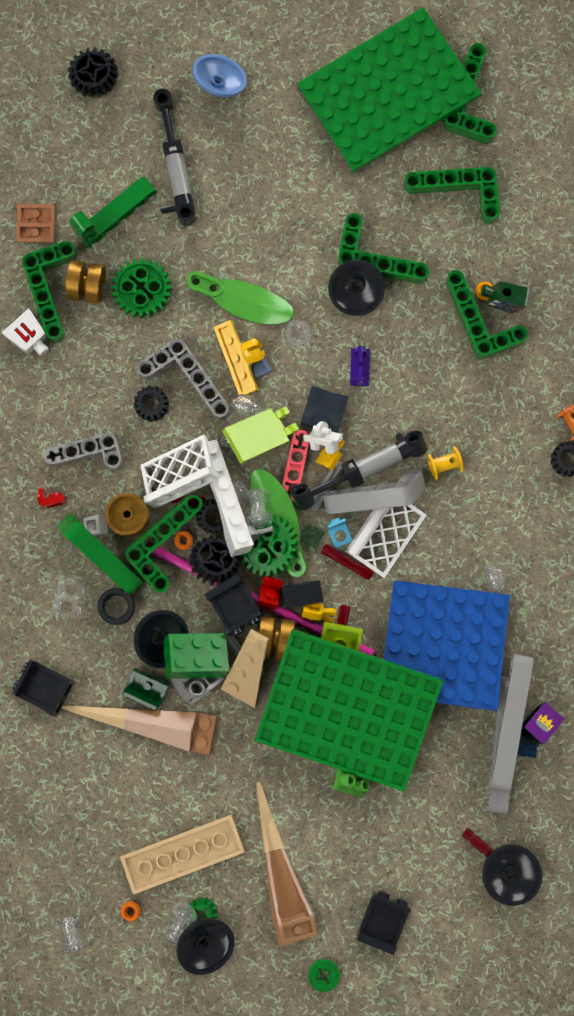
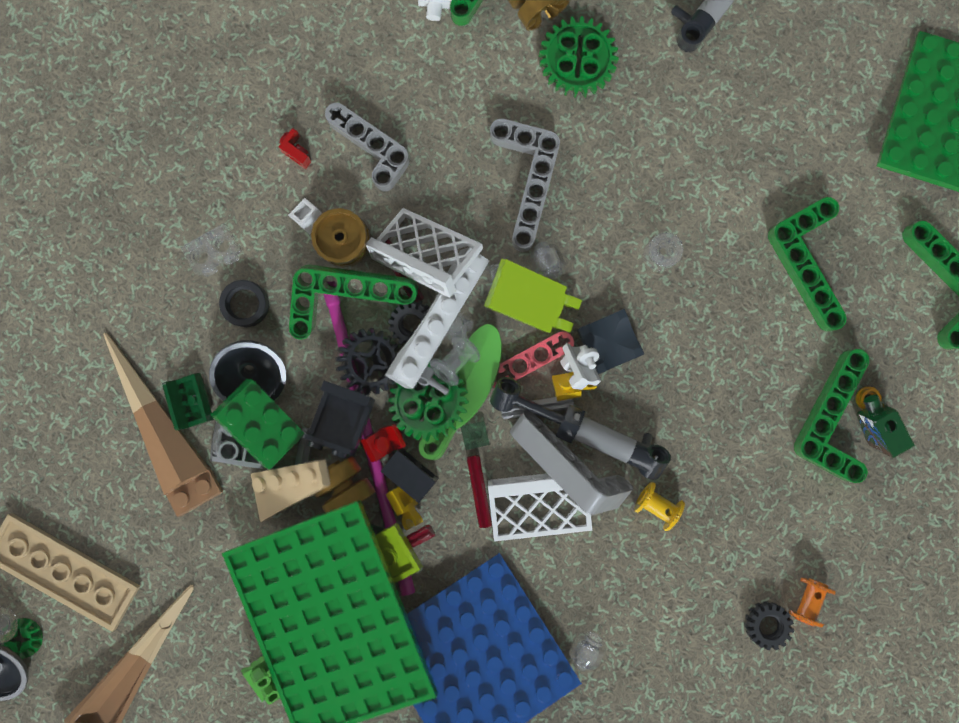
camera: 45 degrees right, 5 degrees up
(42, 687) = (107, 300): black panel -> none
(99, 554) = (274, 212): green beam -> none
(151, 392) = (471, 151): black tyre -> none
(179, 535) = (357, 310): orange plate -> none
(239, 356) = (592, 212): yellow plate -> none
(243, 299) = (653, 166): bright green plant -> none
(261, 369) = (599, 243): sand blue tile -> none
(336, 525) = (504, 450): medium azure bracket -> none
(352, 299) = (753, 282): black dish -> none
(360, 366) = (684, 339): dark purple hinge -> none

